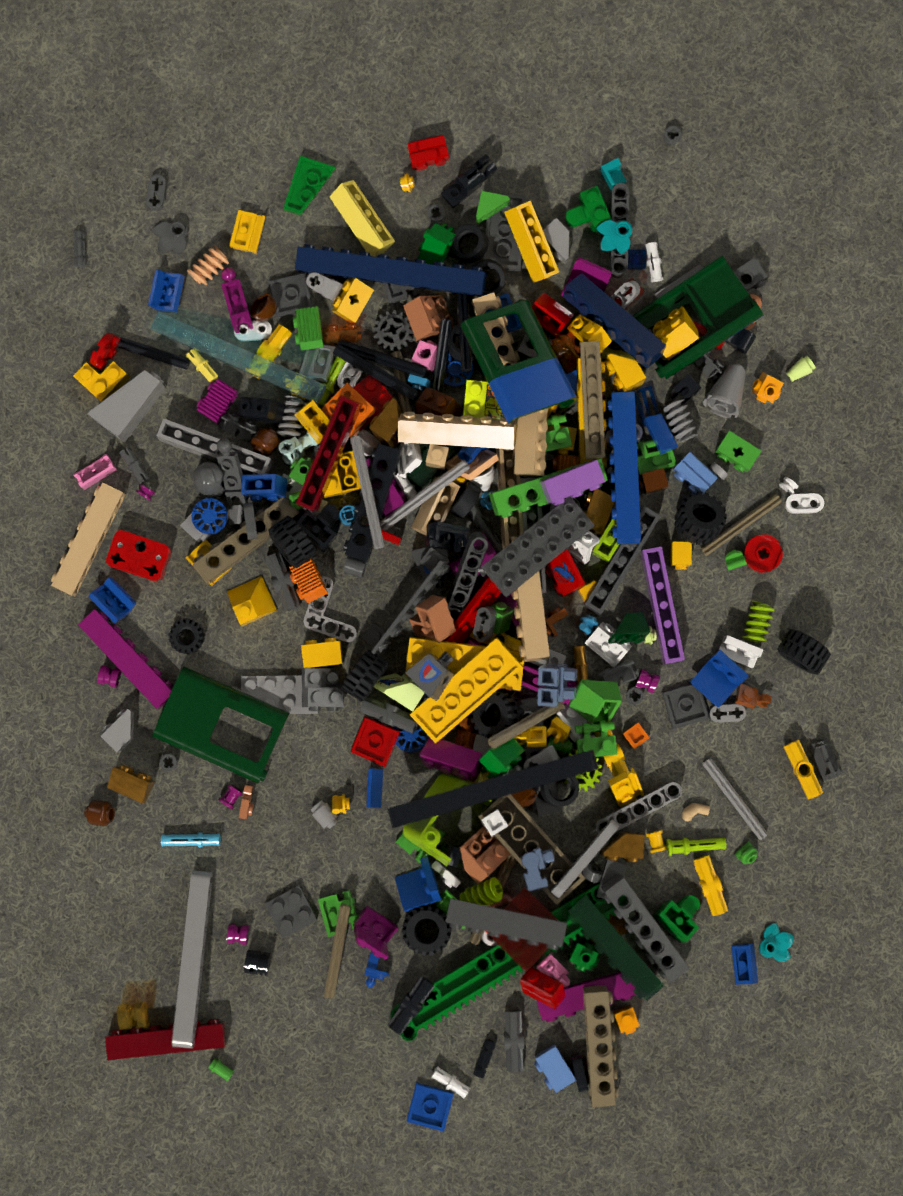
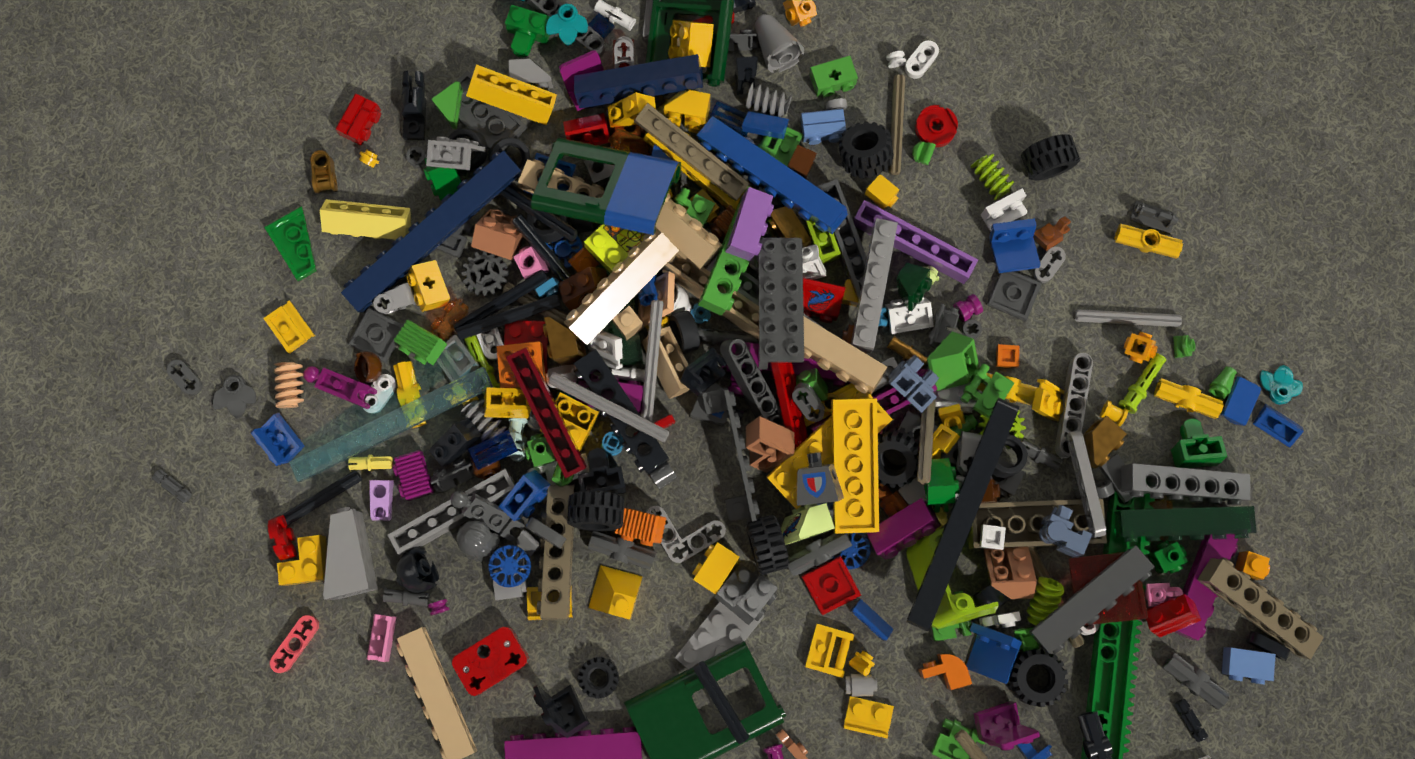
camera: 55 degrees left, 5 degrees down
(31, 425) = (285, 644): none -> coral beam
(113, 600) = (510, 717): blue bracket -> none
(144, 629) = (561, 710): none -> black bracket
(155, 457) = (414, 567): none -> black cylinder
(184, 393) = (381, 499): none -> lavender leg
(235, 729) = (721, 702): none -> black axle
(270, 444) = (505, 449): none -> clear blue tile
(308, 837) = (868, 717): none -> yellow plate
(328, 769) = (822, 647): none -> yellow plate
(368, 163) = (323, 176): none -> pearl gold piece
(386, 866) = (953, 670): none -> orange brick
(453, 238) = (451, 153): none -> light grey bracket
(457, 390) = (582, 260): none -> orange plate
(584, 813) = (1042, 456): none -> dark grey pin
(602, 602) = (873, 285): none -> light grey brick
(693, 809) = (1110, 359): tan arm -> none
(715, 817) = (1132, 344): none -> light orange brick
(739, 923) = (1241, 401): none -> blue slope
(742, 901) = (1222, 384): none -> bright green cone

